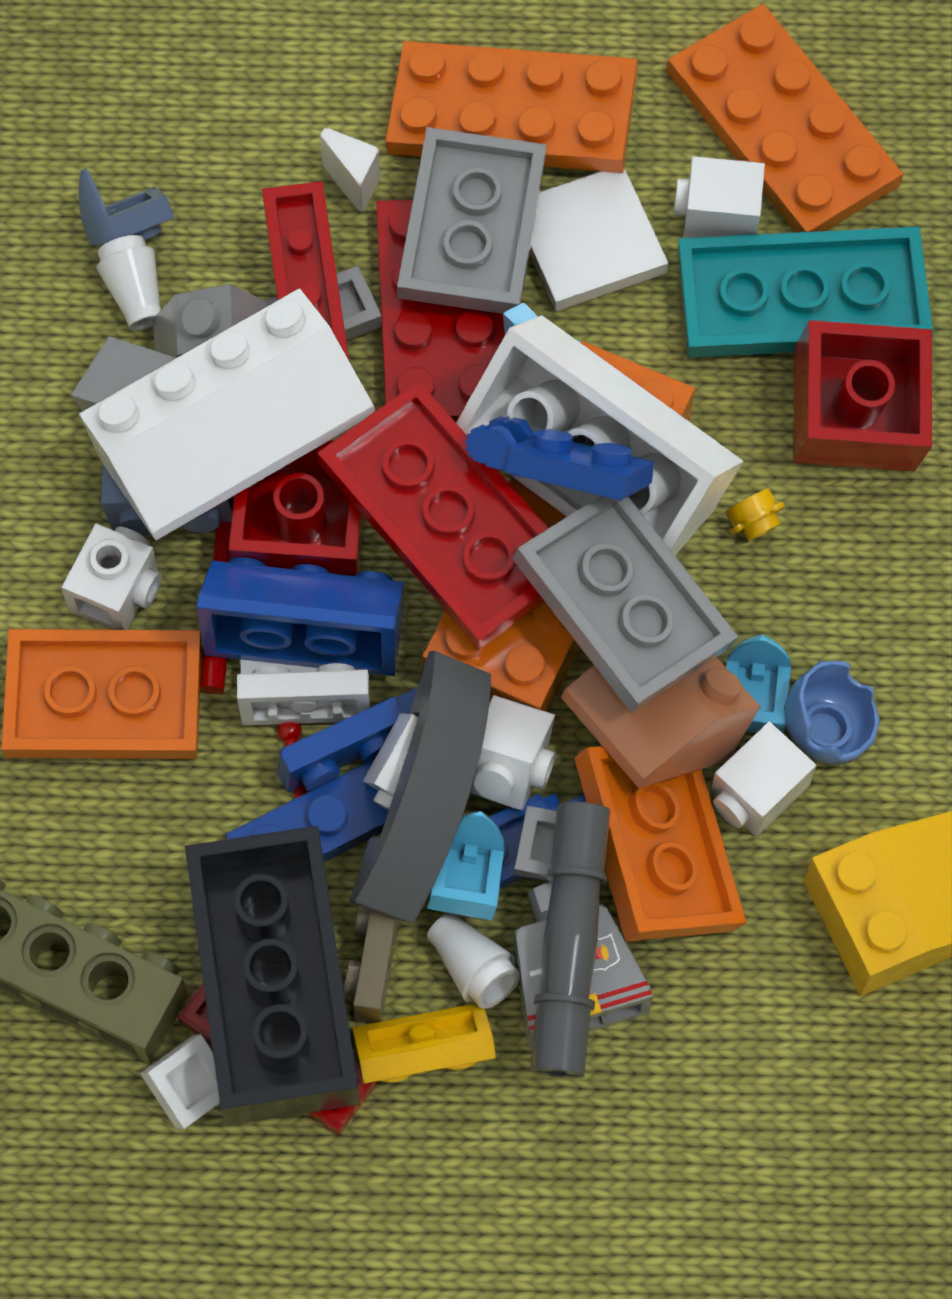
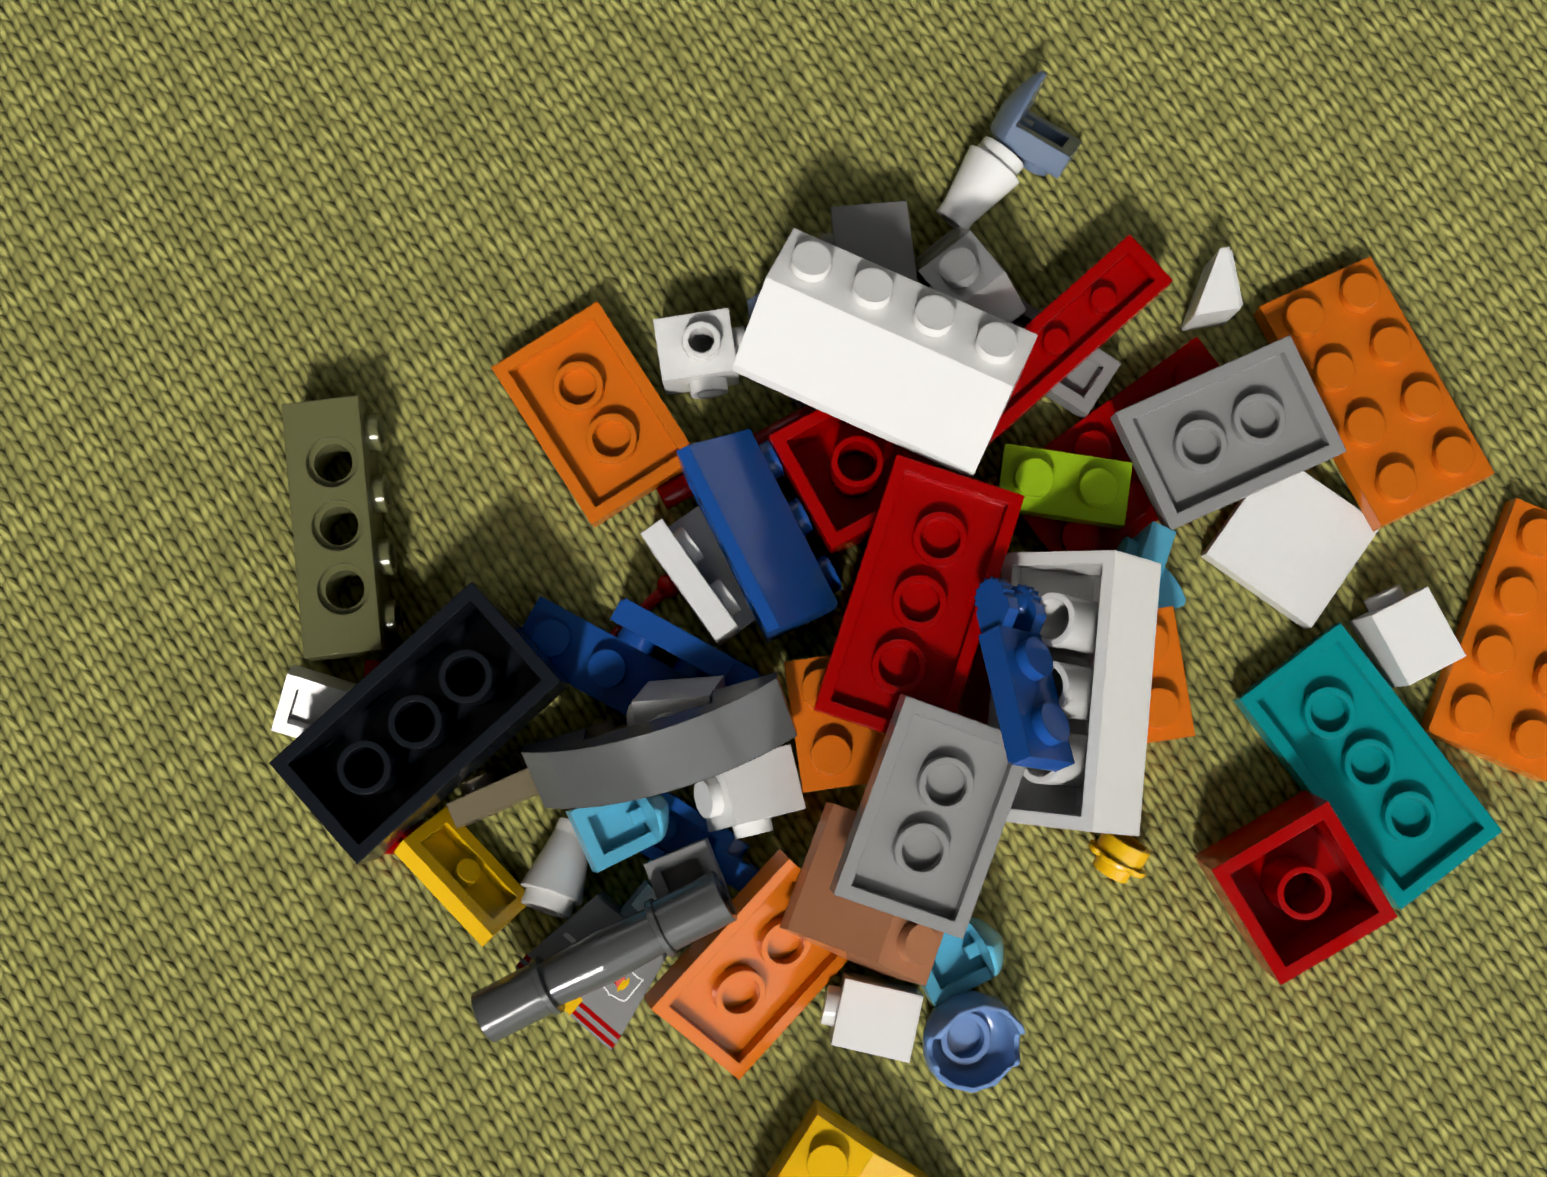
camera: 60 degrees right, 15 degrees up
(435, 355) = (1067, 485): none -> lime plate

